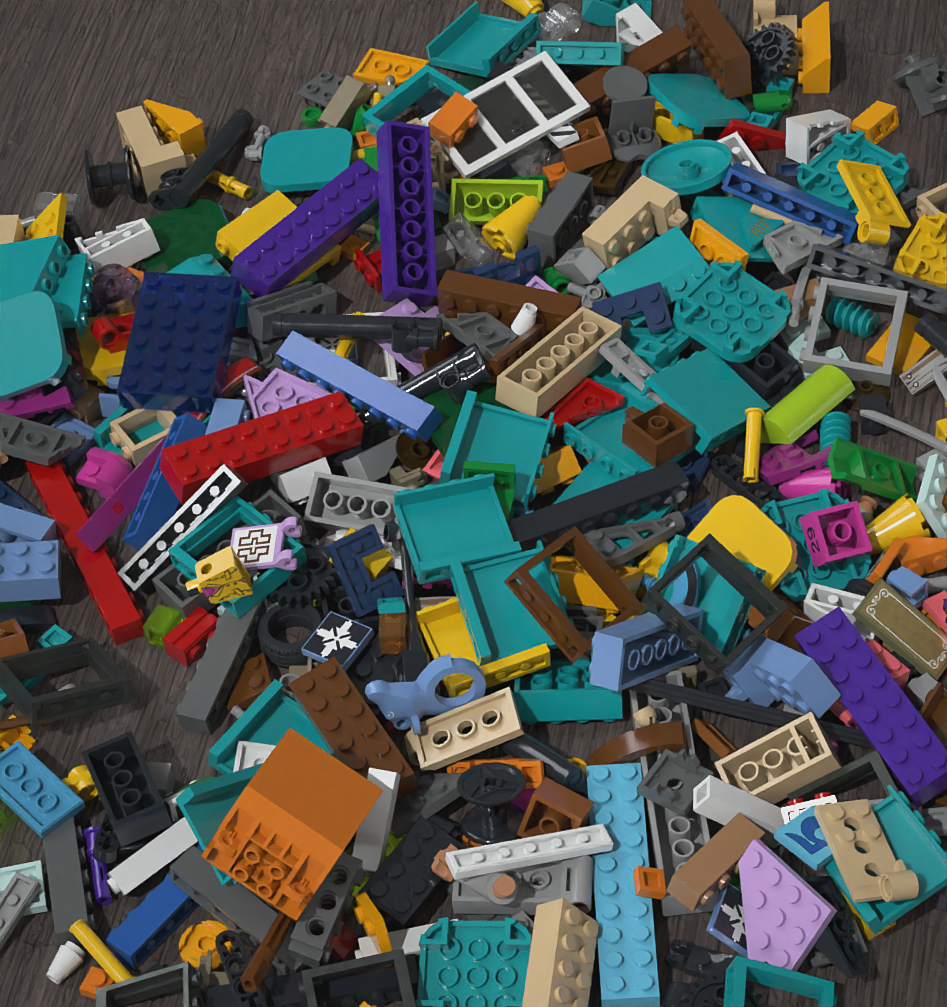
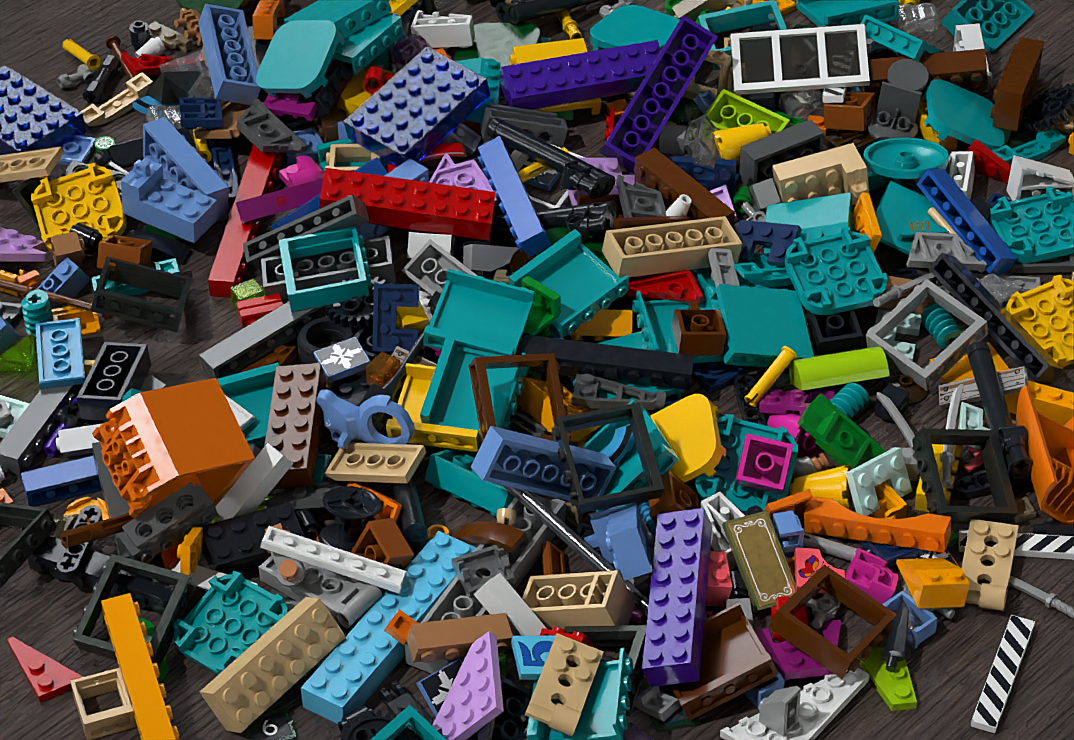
camera: 30 degrees right, 5 degrees down
(100, 951) = (10, 476): yellow pin -> none
(221, 577) = (288, 271): yellow torso -> none
(263, 545) = (337, 265): flag -> none
(390, 605) = (393, 350): teal tile -> none
(453, 120) = (750, 43): orange brick -> none
(772, 101) = (1029, 144): green piece -> none
(875, 201) = (1014, 257): yellow hinge -> none

